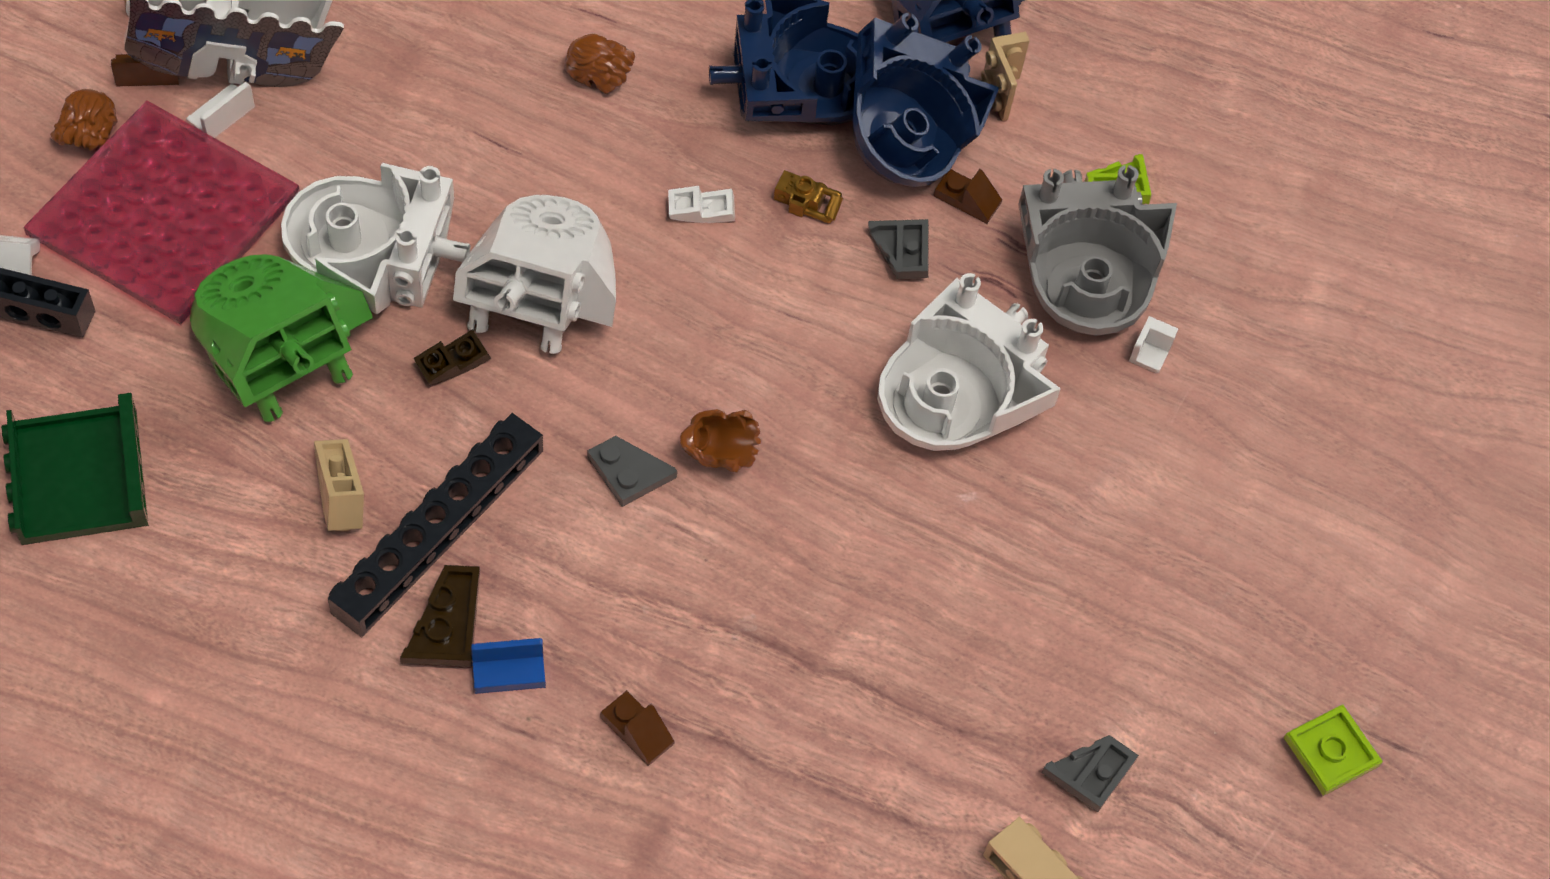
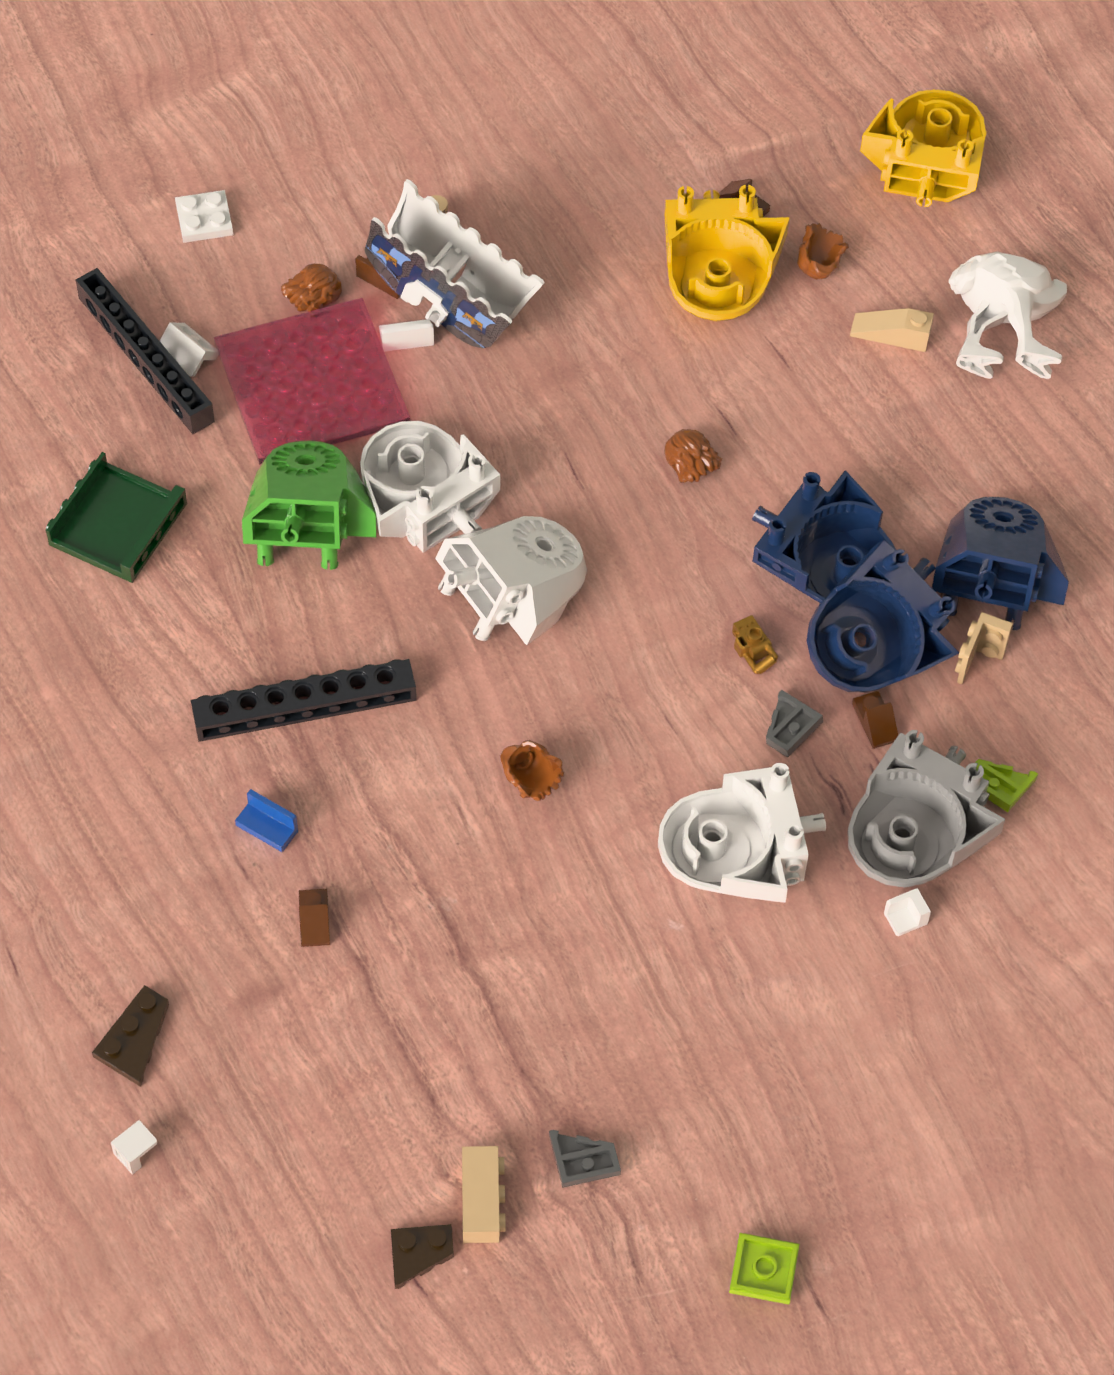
camera: 45 degrees right, 0 degrees up
(339, 485) = (263, 633): tan slope -> none
(448, 622) = (257, 766): dark brown wing -> none
(449, 361) = (414, 601): dark brown slope -> none
(629, 469) = (459, 750): dark grey wing -> none
(708, 207) = (671, 603): white slope -> none

